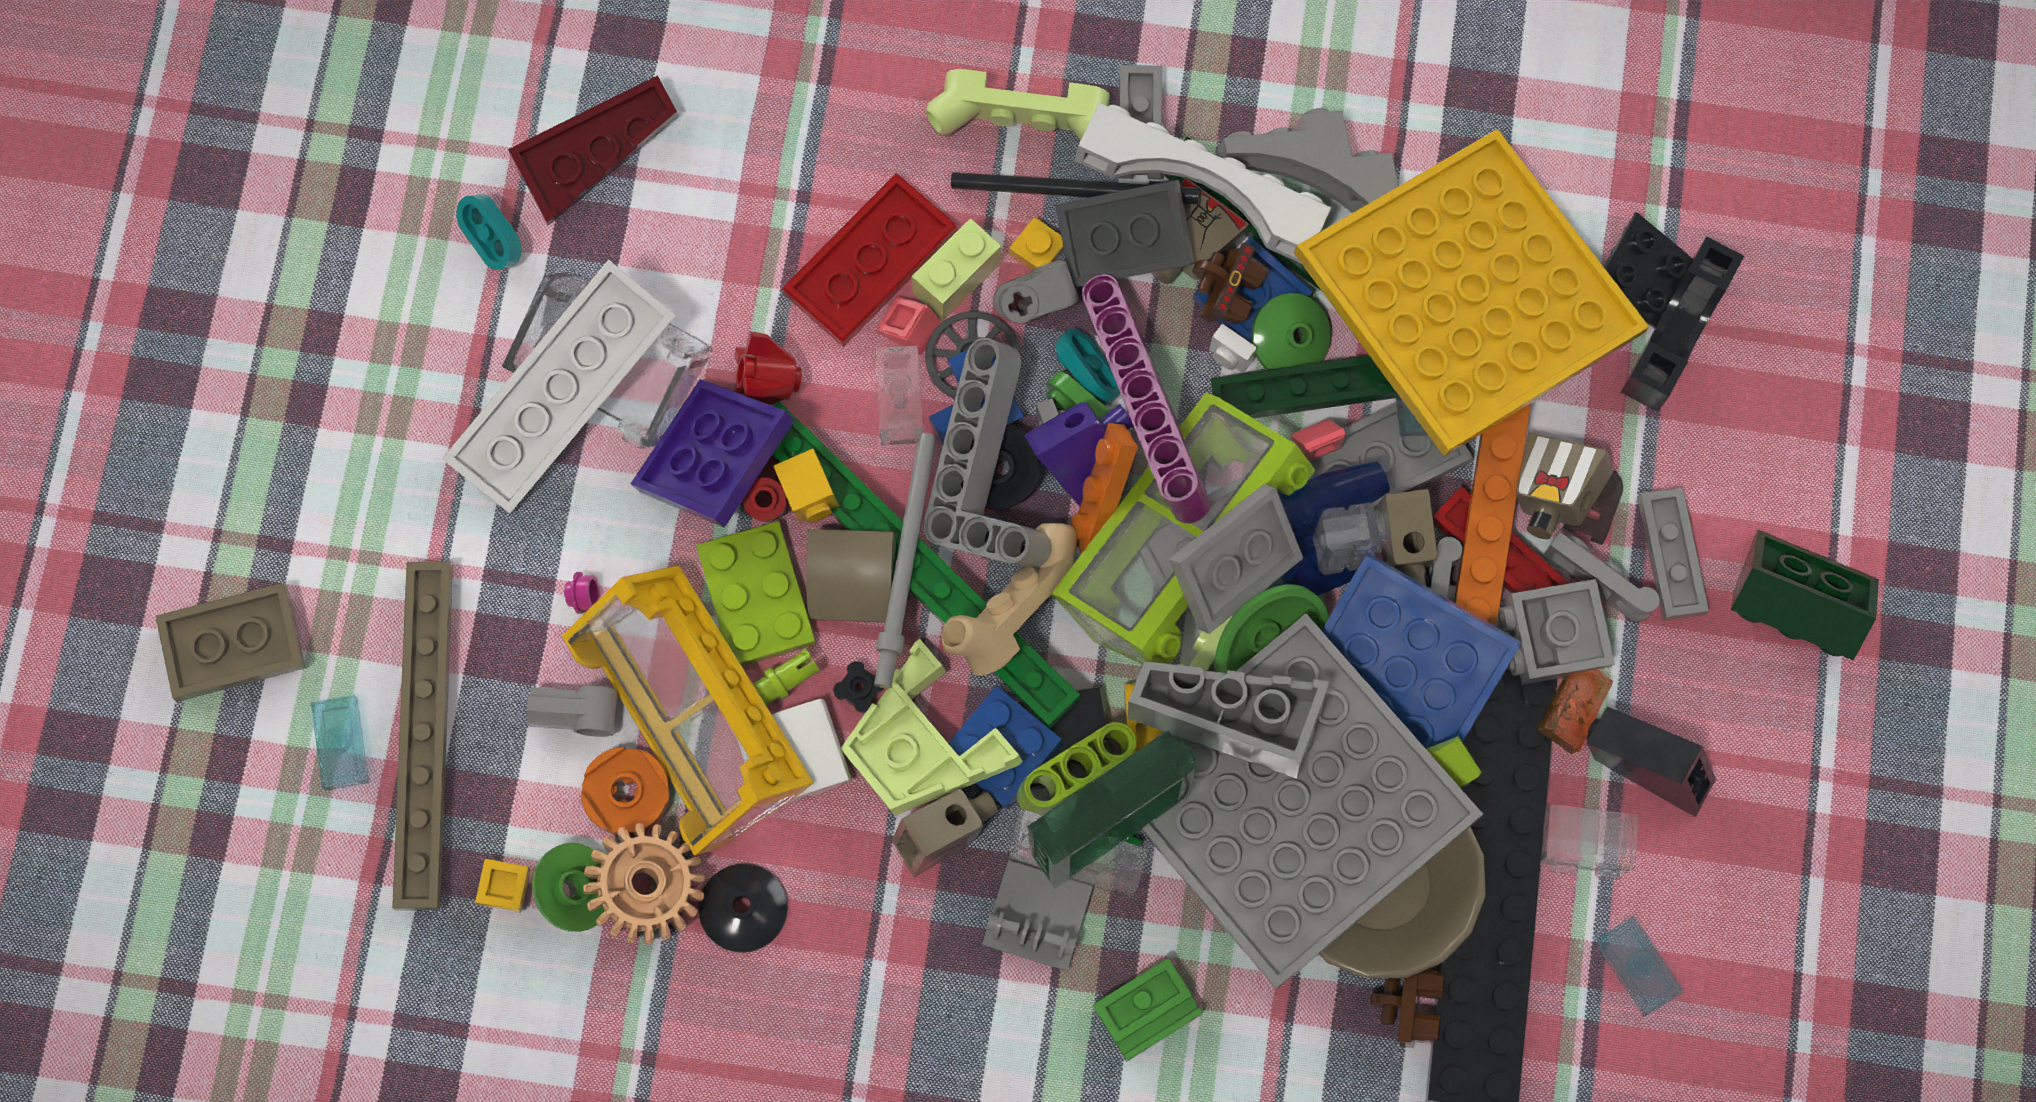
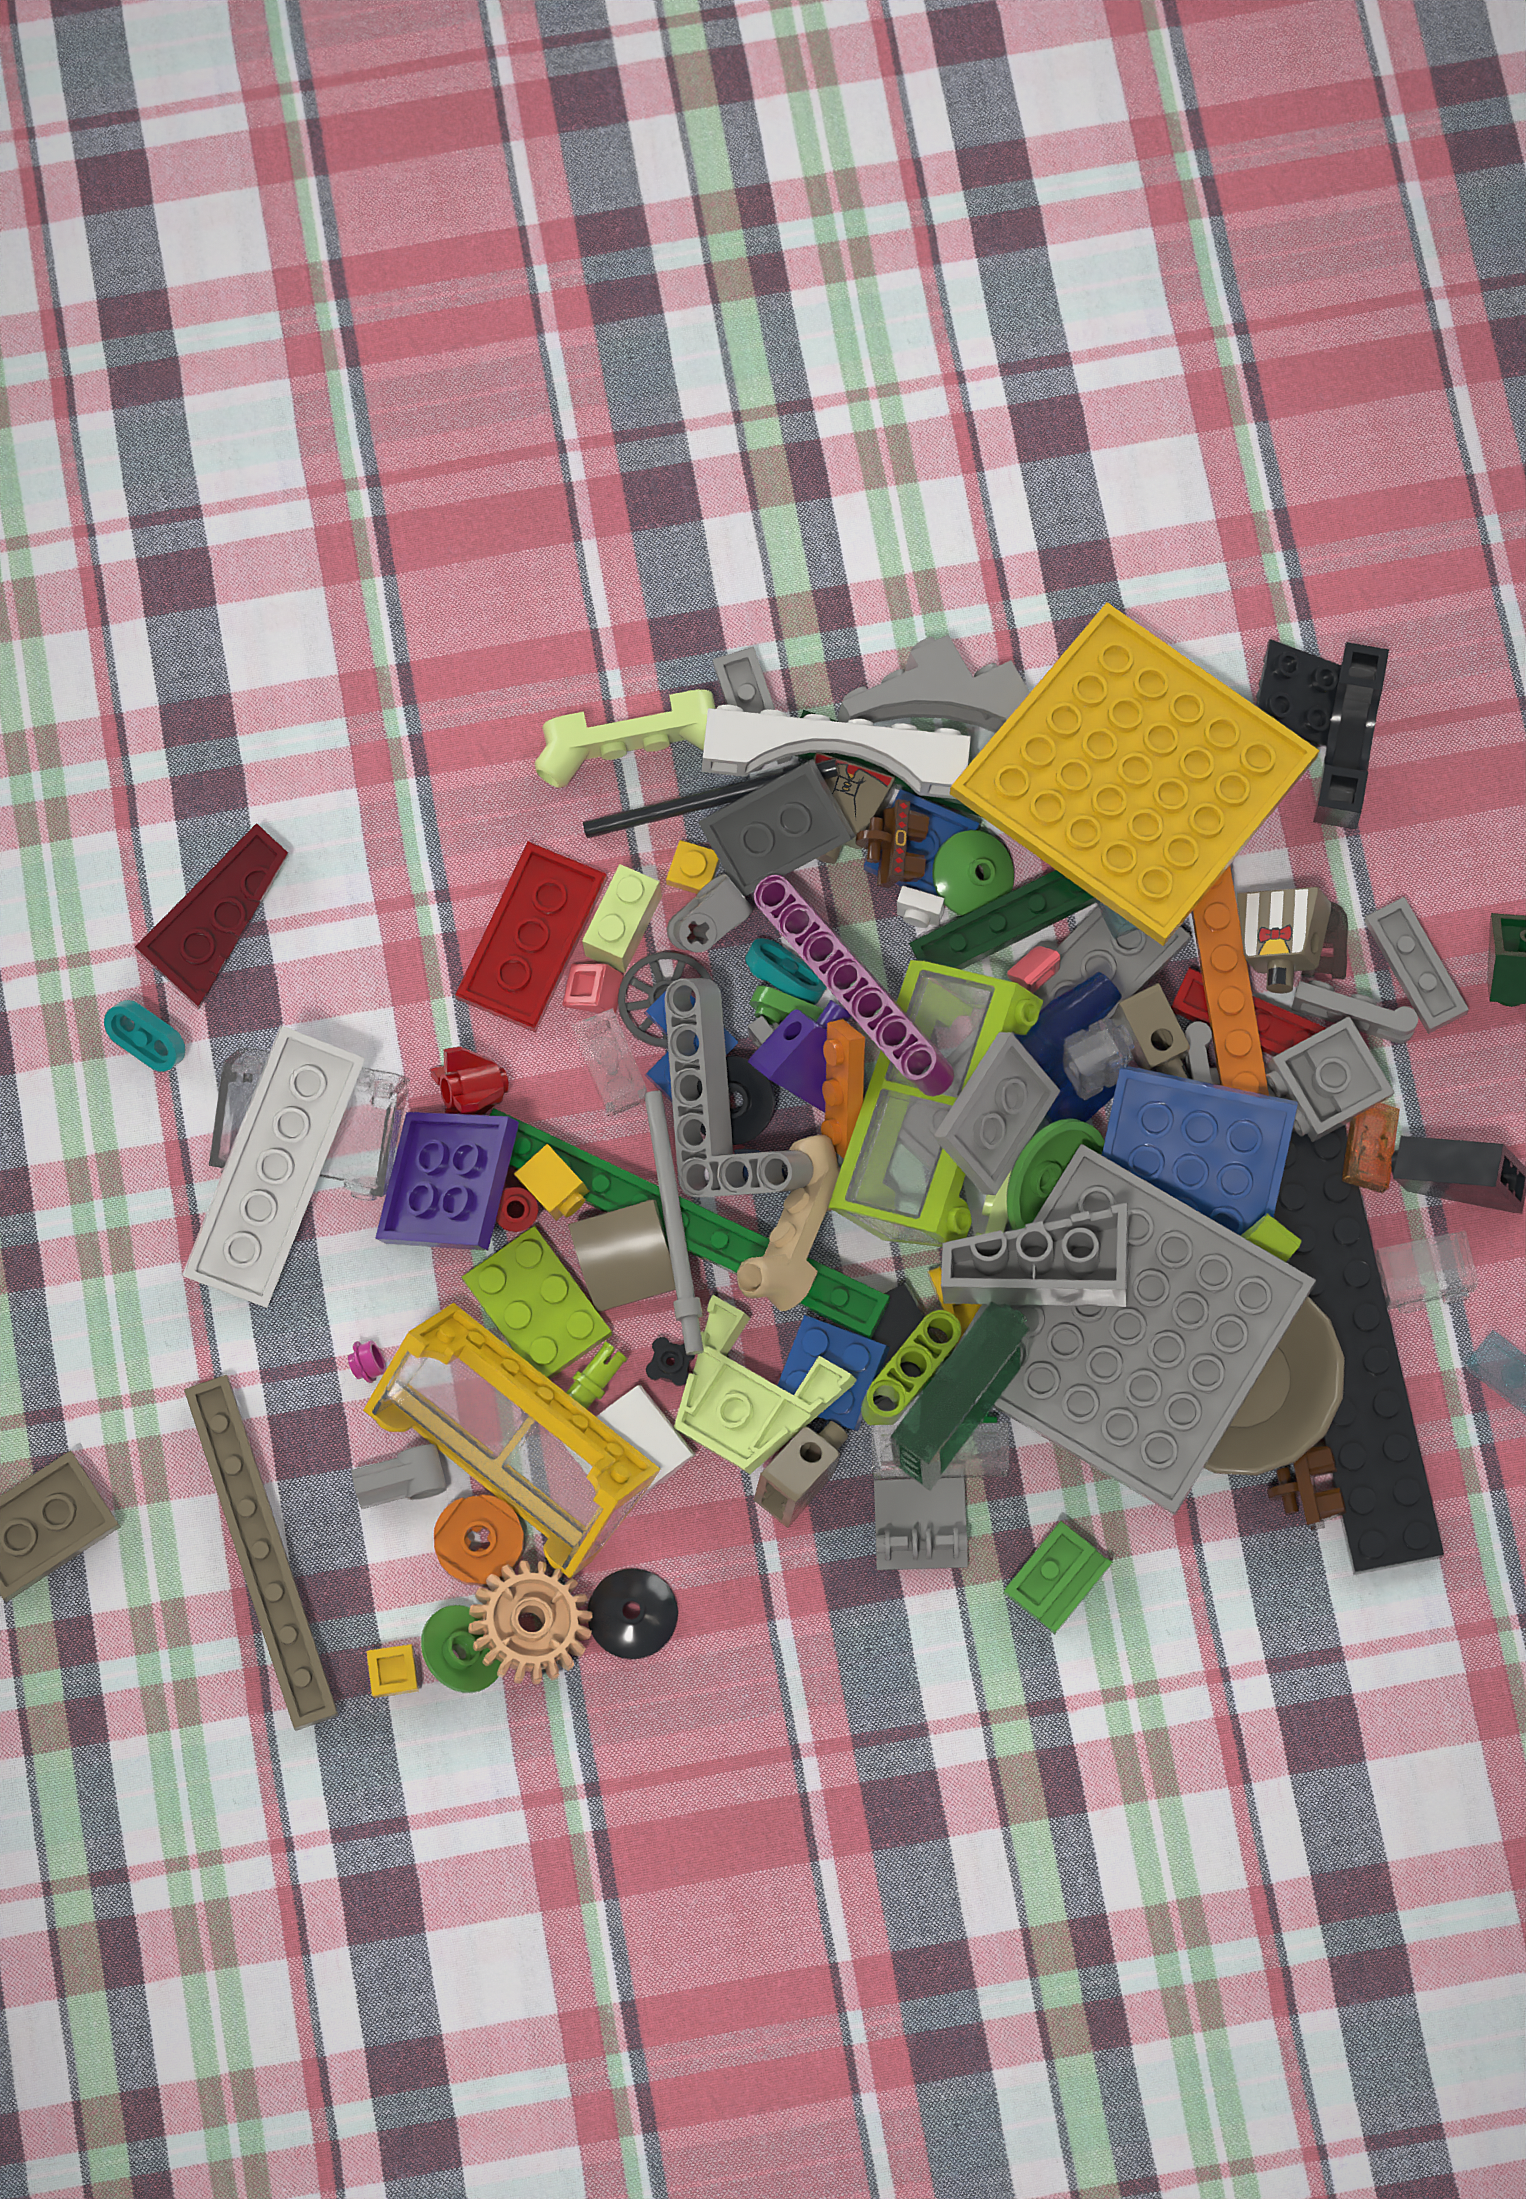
camera: 10 degrees left, 0 degrees up
(339, 742) = (181, 1588): clear light blue plate -> none

